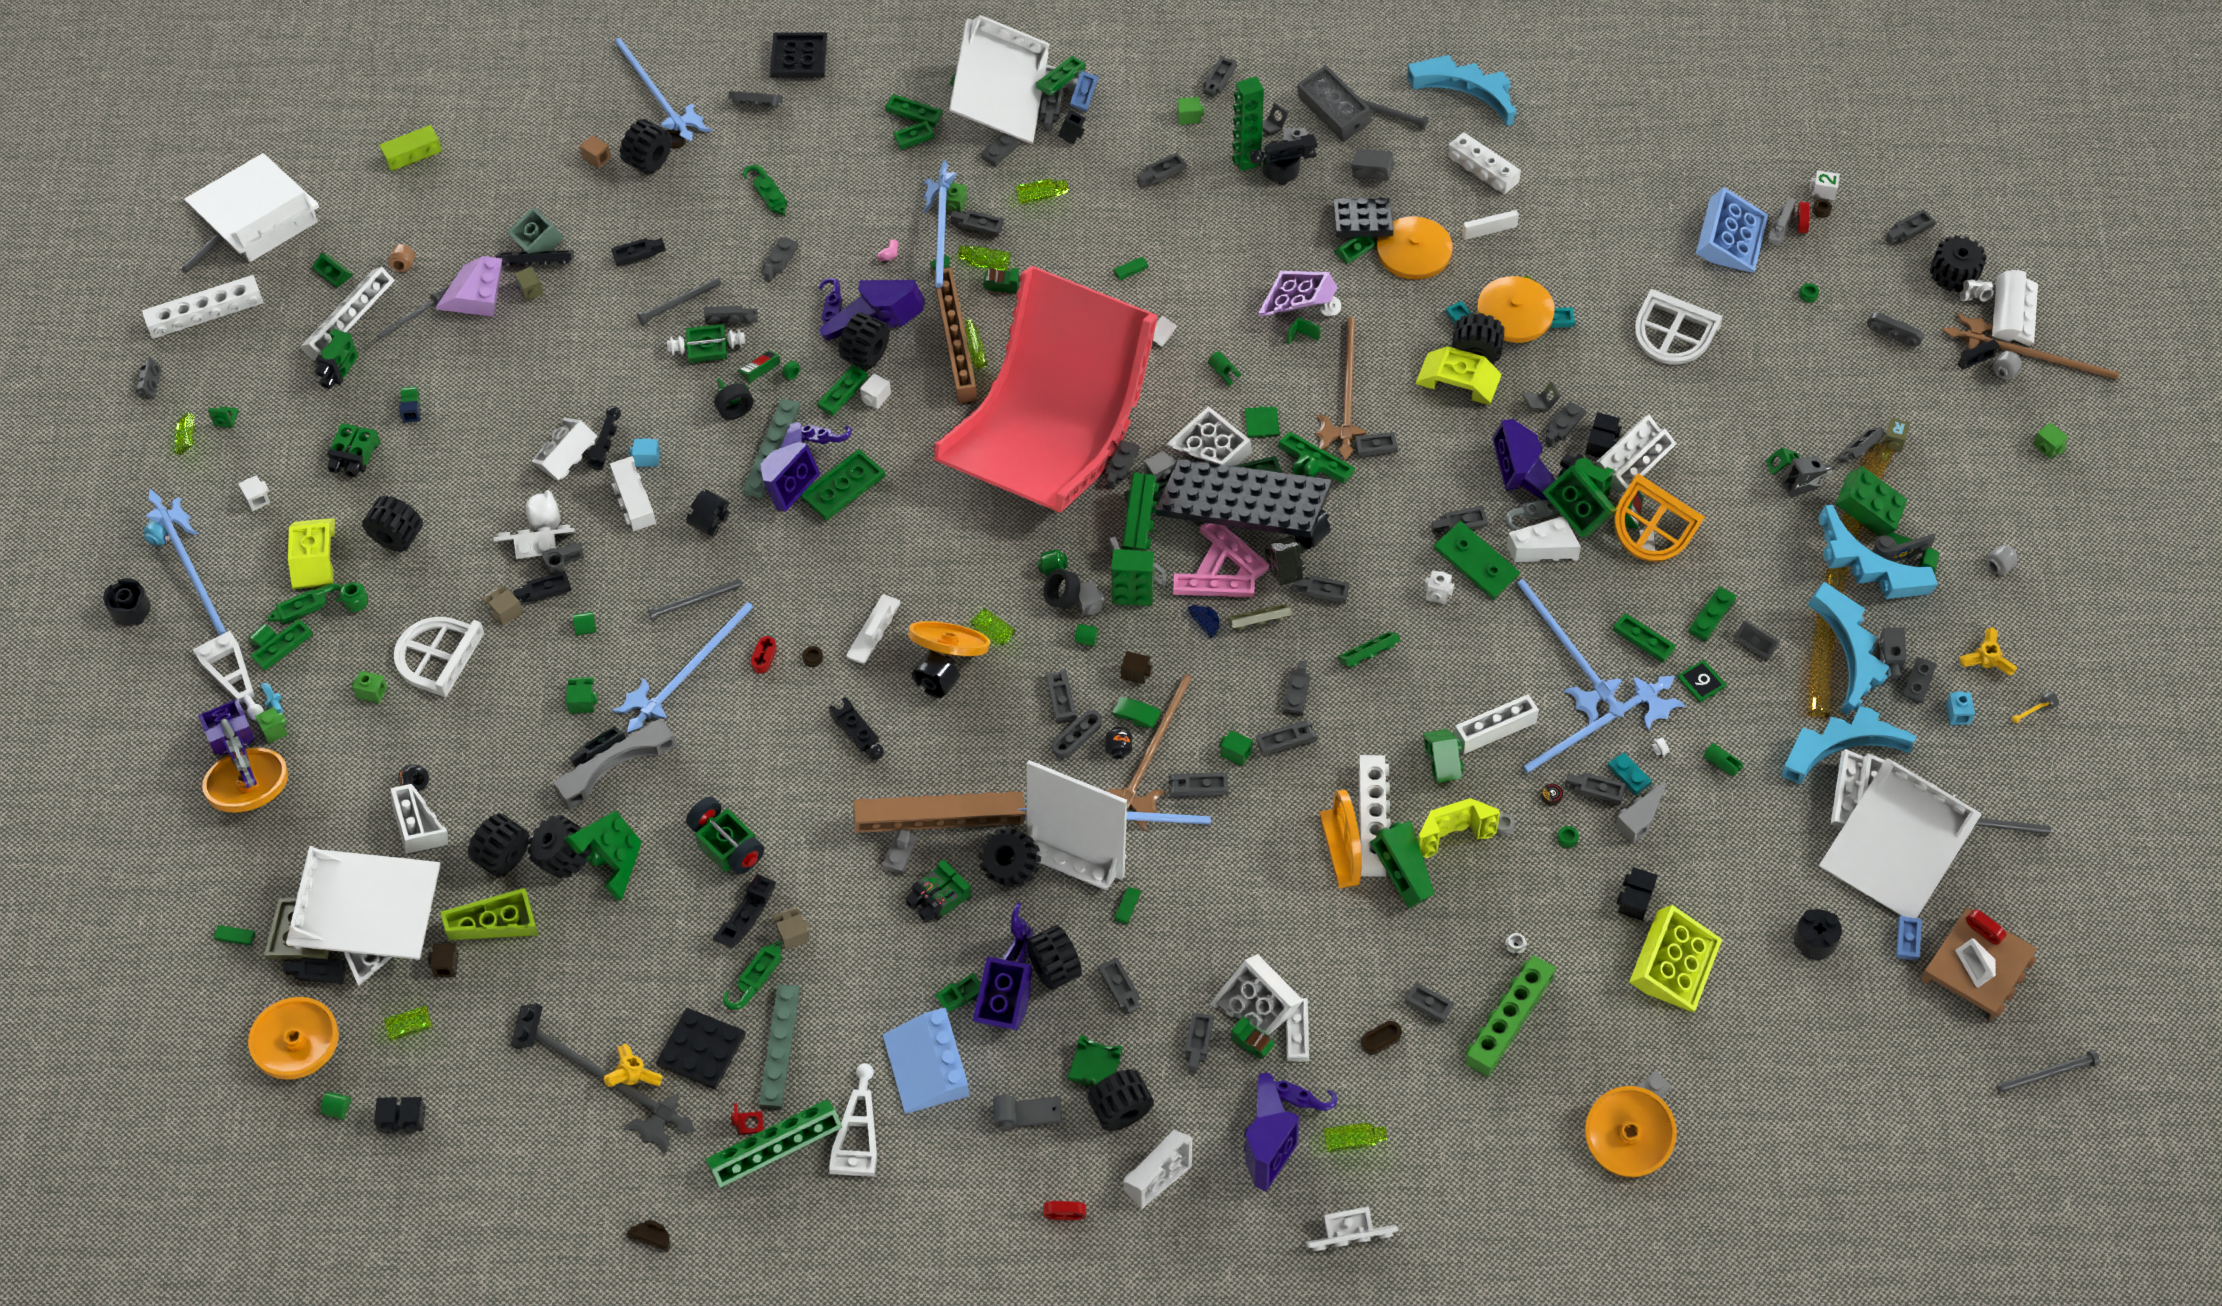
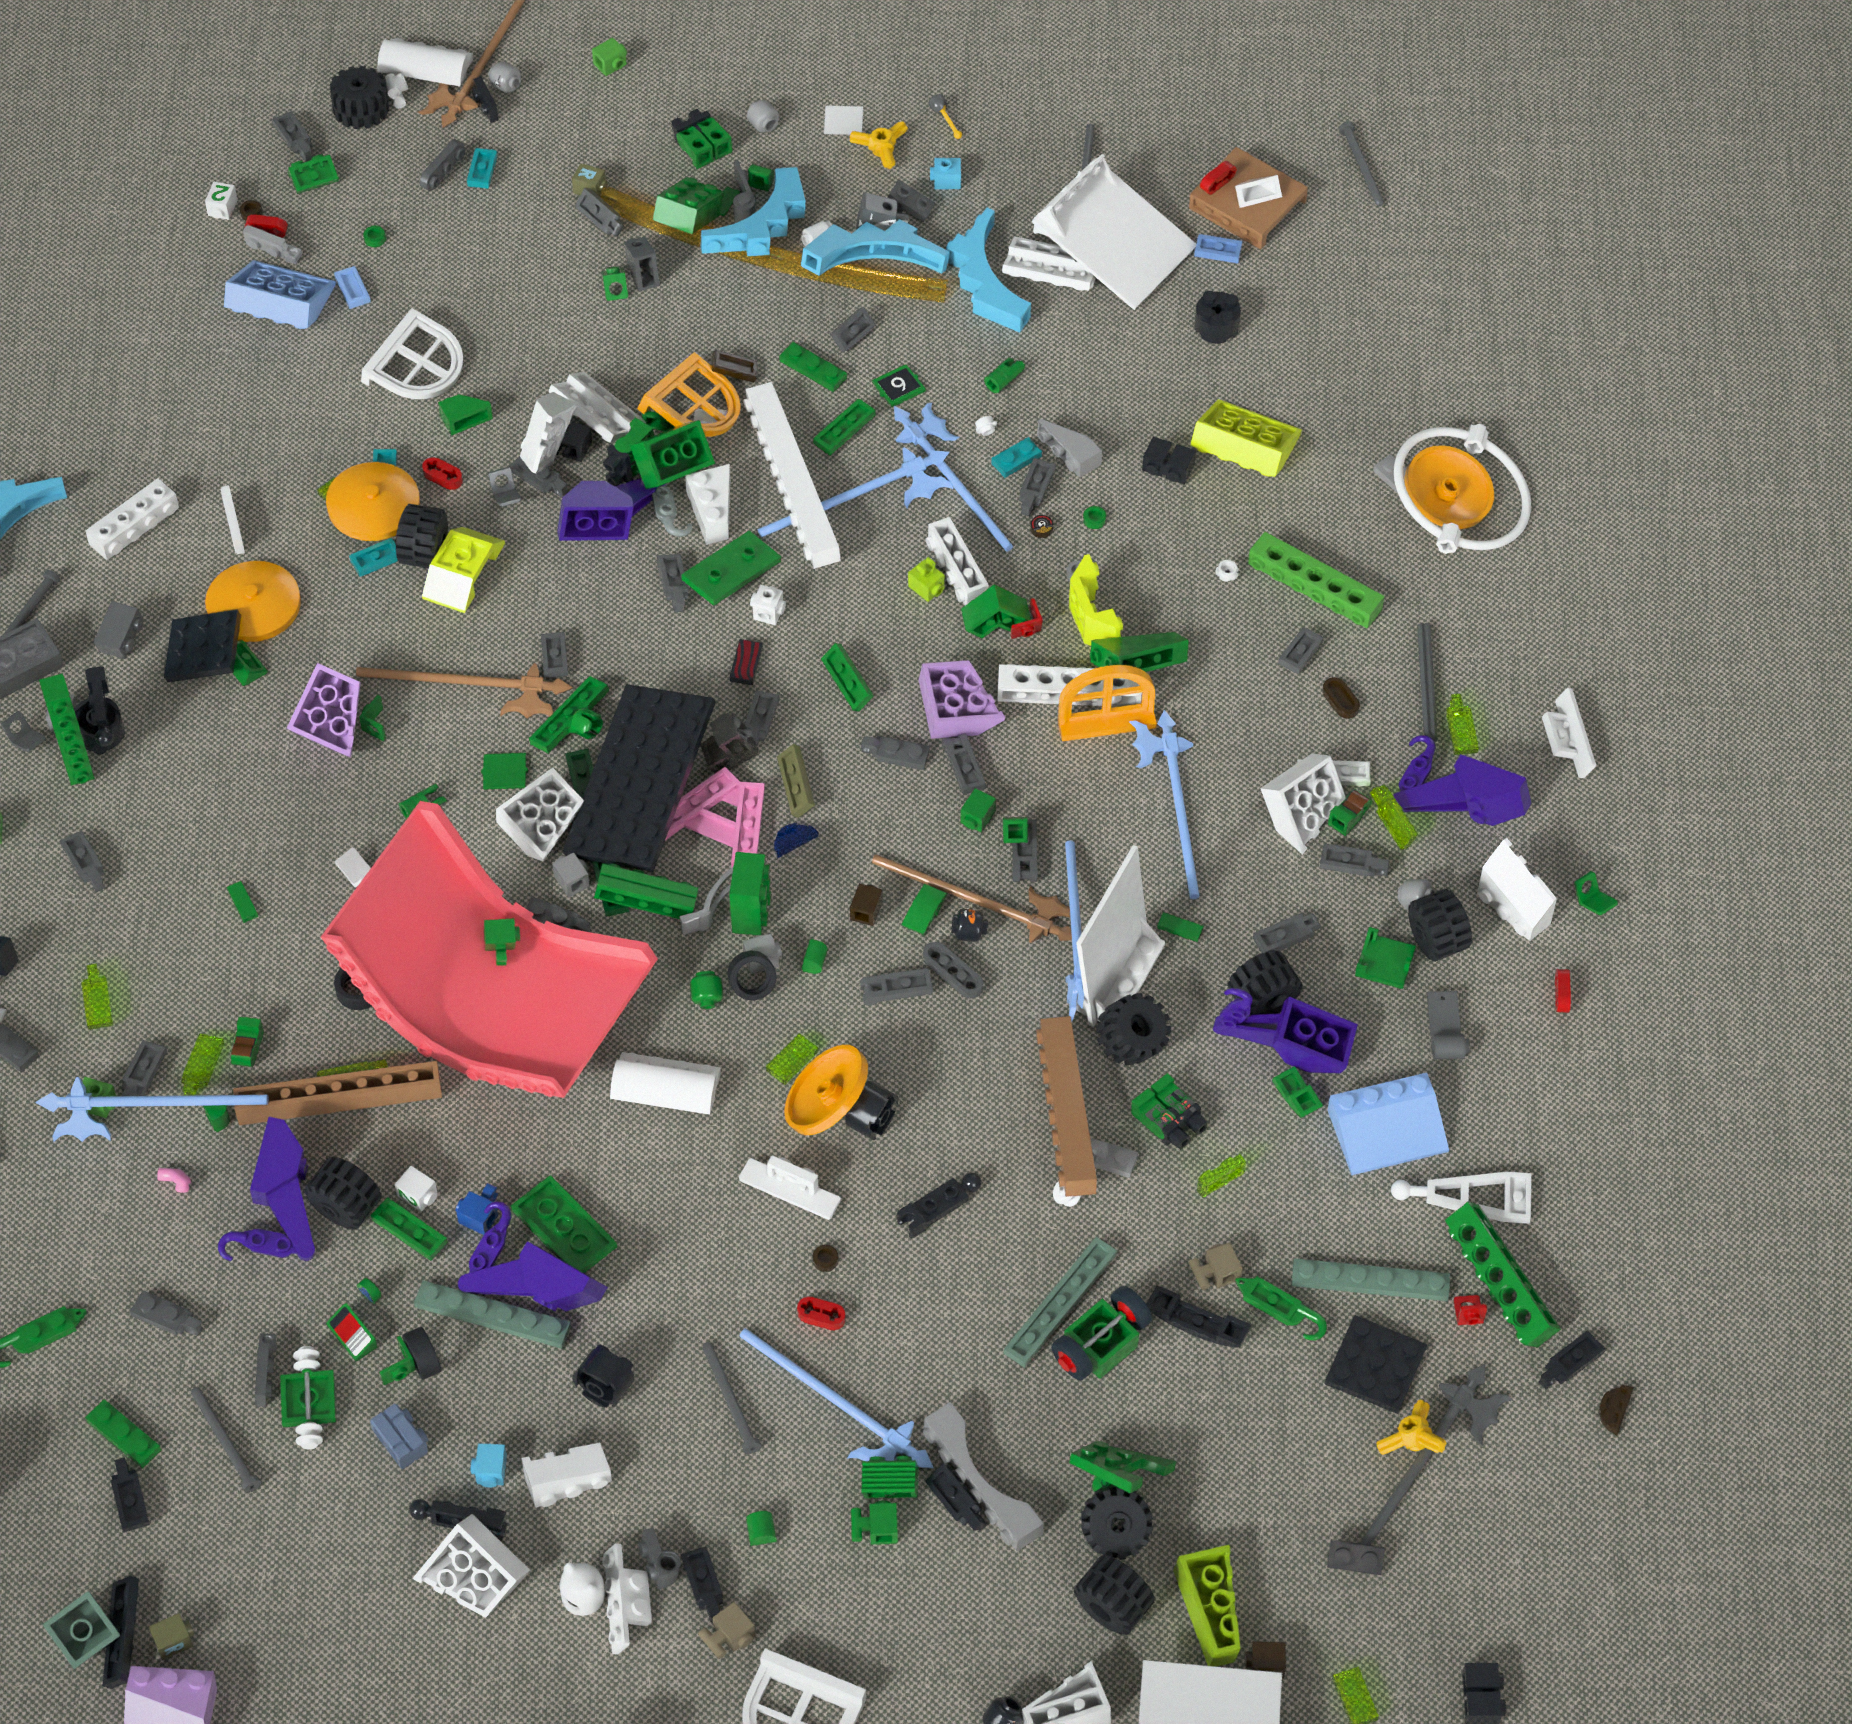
camera: 90 degrees left, 0 degrees up
(615, 699) = (890, 1478): none -> green brick
(672, 397) = (399, 1435): none -> sand blue brick
(687, 244) = (123, 1433): none -> green plate
(695, 1200) = (1572, 1360): none -> black hinge
(766, 816) = (1060, 1302): none -> sand green plate
(859, 428) = (471, 1210): none -> blue brick
(873, 924) = (1227, 1171): none -> clear neon green plate
(968, 541) = (664, 1082): none -> white brick
(1092, 421) = (499, 937): none -> green brick
(1161, 1088) = (1412, 890): none -> light grey head
(1166, 1245) = (1593, 899): none -> green bracket
(1210, 770) = (1015, 829): none -> green brick
(1248, 1072) = (1393, 817): none -> clear neon green hinge
(1313, 877) = (1171, 746): none -> light blue piece
(1346, 723) = (956, 700): none -> lavender wedge
(1382, 578) = (746, 662): none -> tile
(1403, 1110) = (1427, 680): none -> dark grey axle
(1440, 789) = (1029, 627): none -> red bracket
(1477, 702) = (926, 580): none -> lime brick
(1560, 359) = (443, 472): none -> red beam
(1579, 596) = (792, 475): none -> white brick
(1588, 406) = (546, 430): none -> white wedge
(1619, 363) = (464, 412): none -> green slope
(1692, 1156) = (1450, 534): none -> white piece
(1699, 551) = (734, 366): none -> dark brown tile
(1750, 282) = (352, 287): none -> light blue tile
(1867, 243) = (313, 173): none -> green bracket
(1871, 611) = (814, 231): none -> white brick
(1898, 358) = (482, 168): none -> teal plate
(1965, 514) = (701, 138): none -> green hips
(2017, 628) = (843, 119): none -> white sticker

